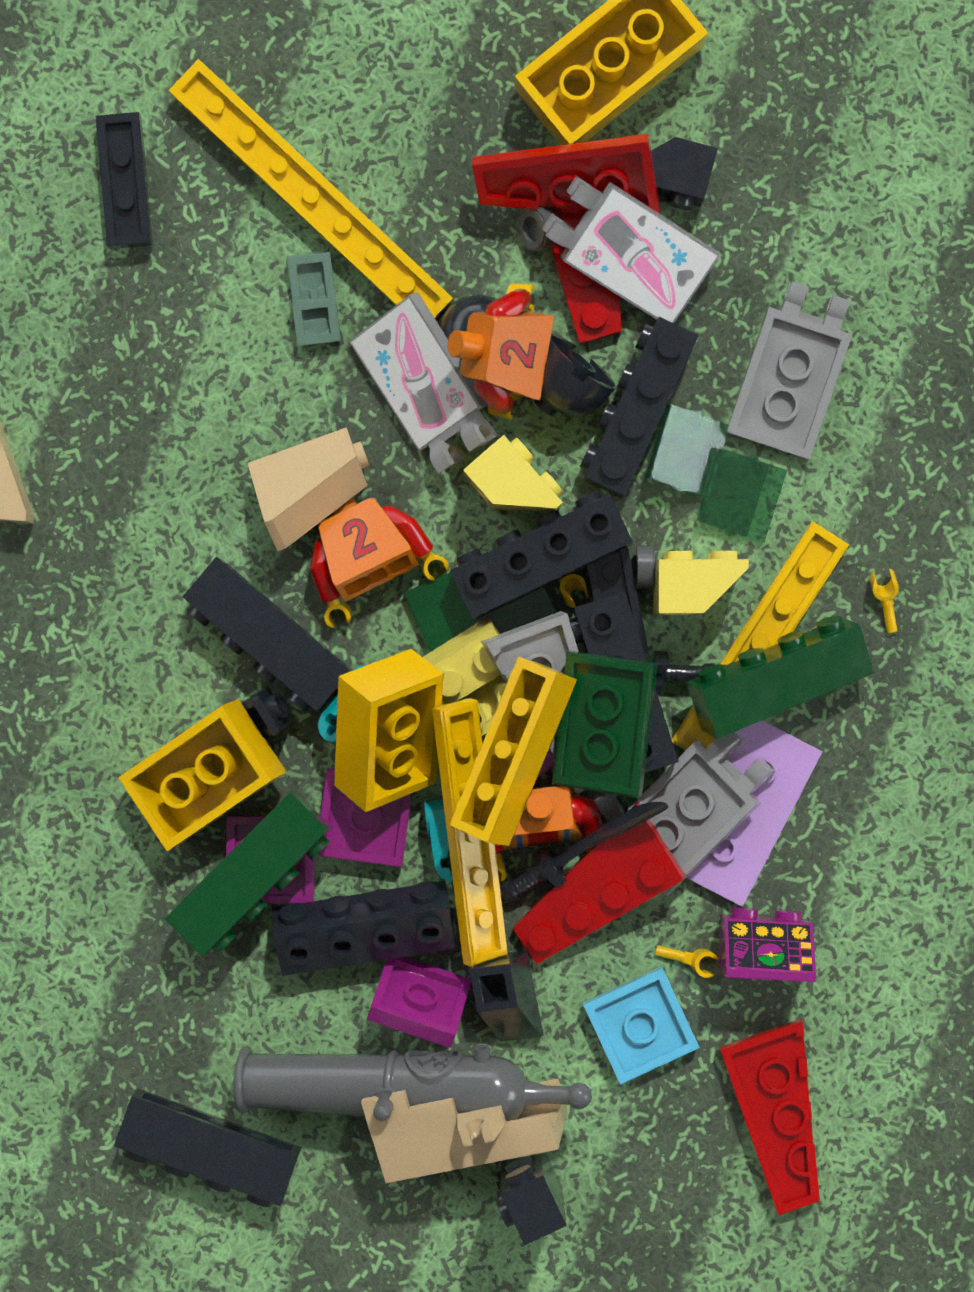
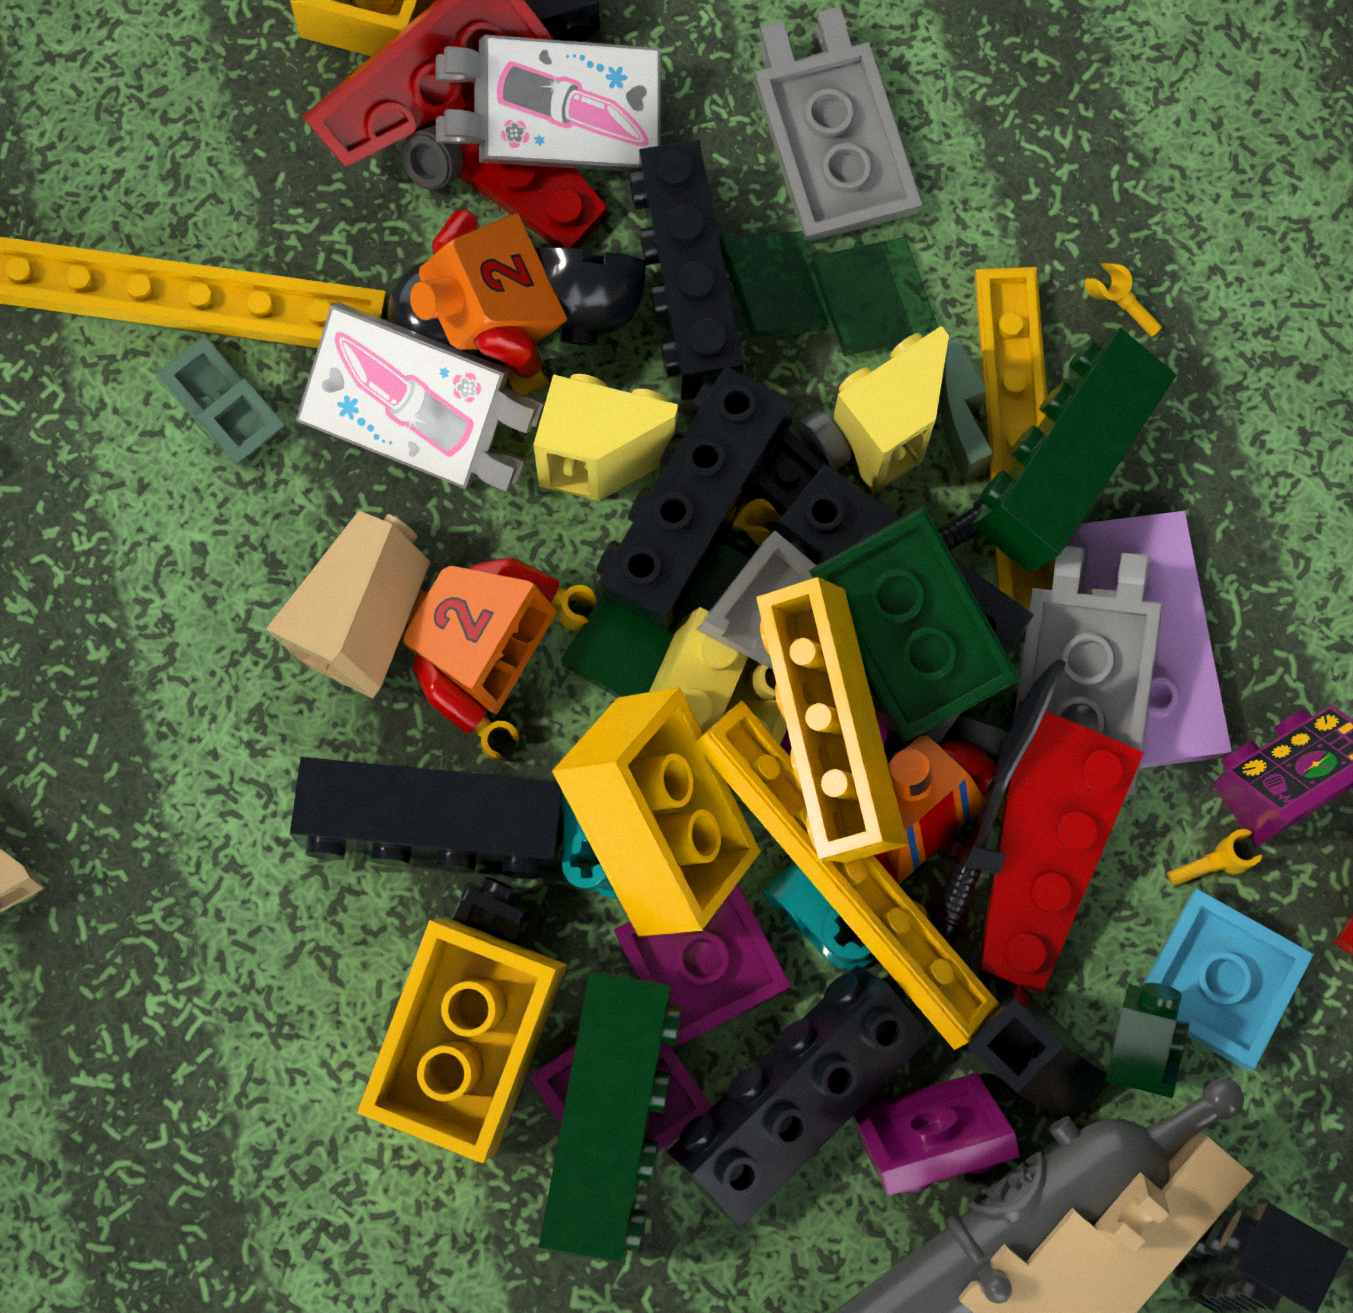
camera: 35 degrees left, 15 degrees down
(571, 1032) = (1149, 1040): none -> dark green brick
(742, 593) = (959, 399): none -> sand green slope

